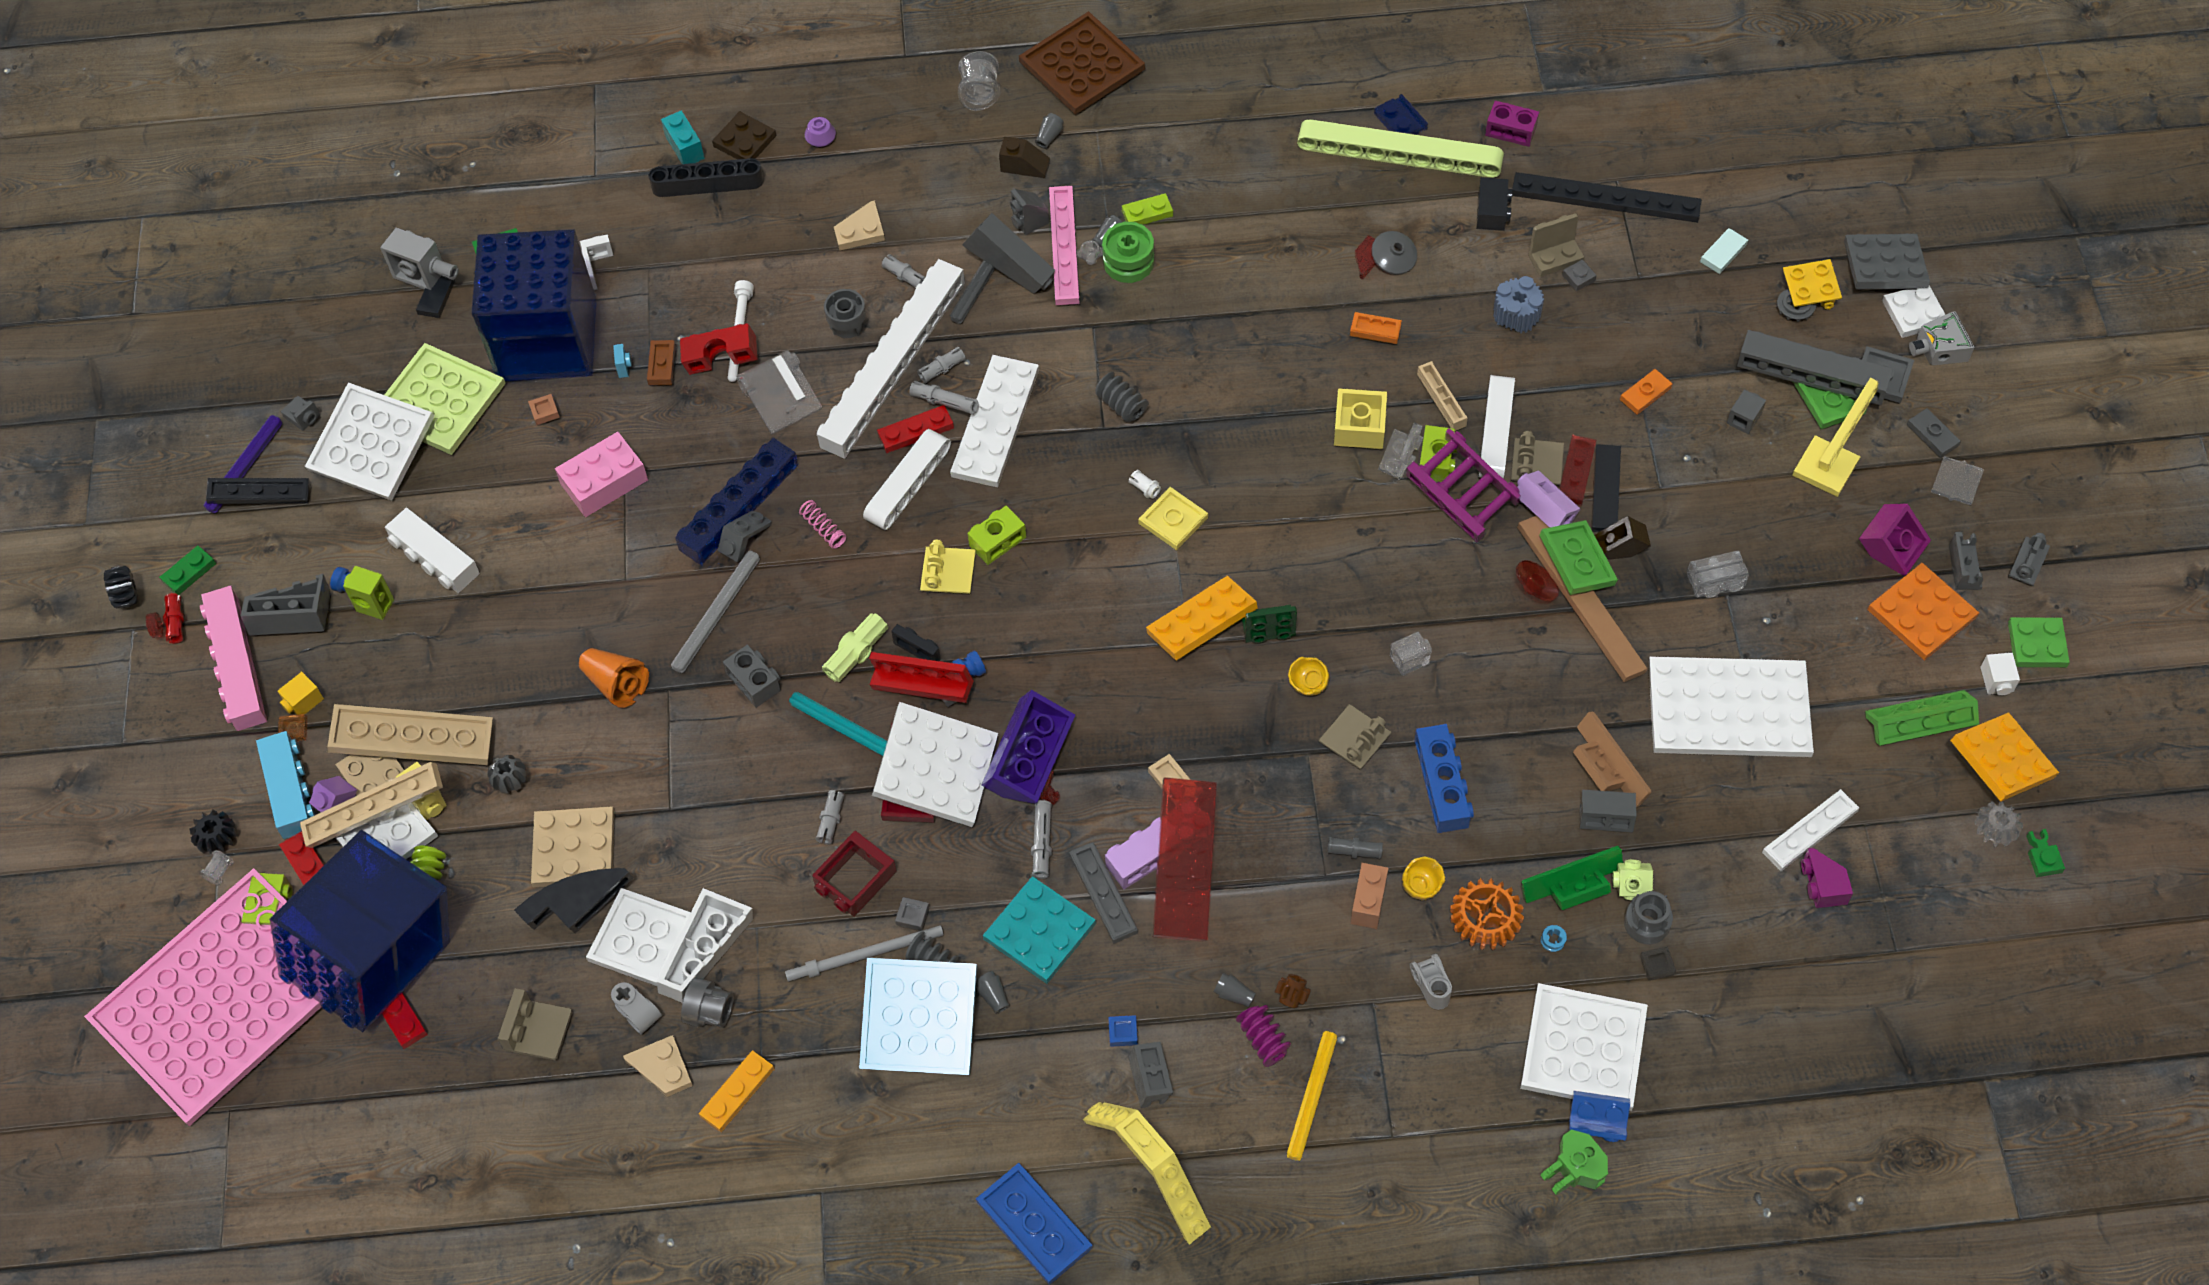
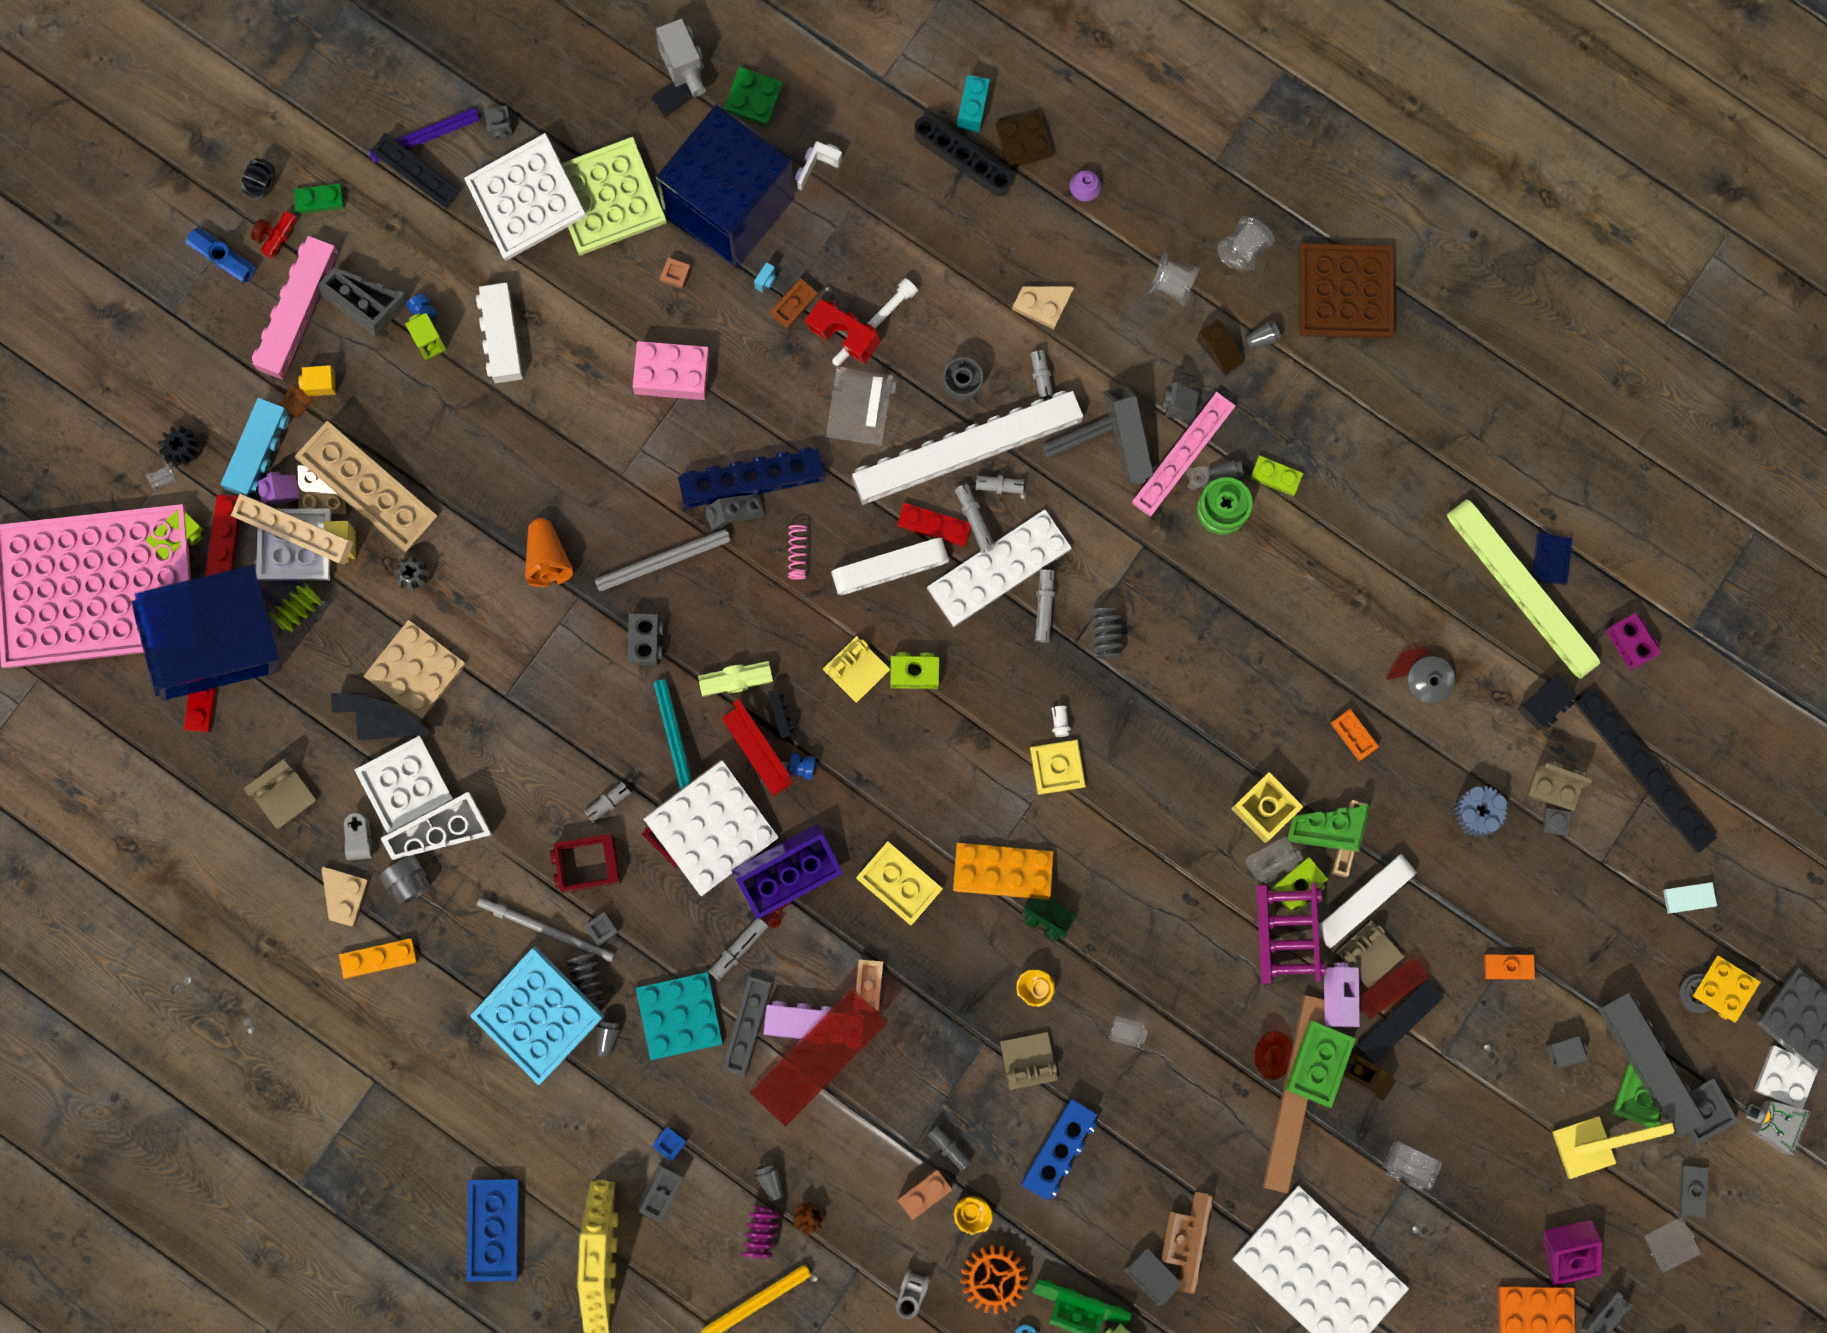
camera: 30 degrees right, 20 degrees up
(121, 667) = (210, 247): none -> blue piece
(946, 137) = (1174, 279): none -> clear hat
(1049, 410) = (1044, 611): none -> light grey pin
(1127, 690) = (899, 883): none -> light yellow plate
(1426, 393) = (1335, 829): none -> bright green wing

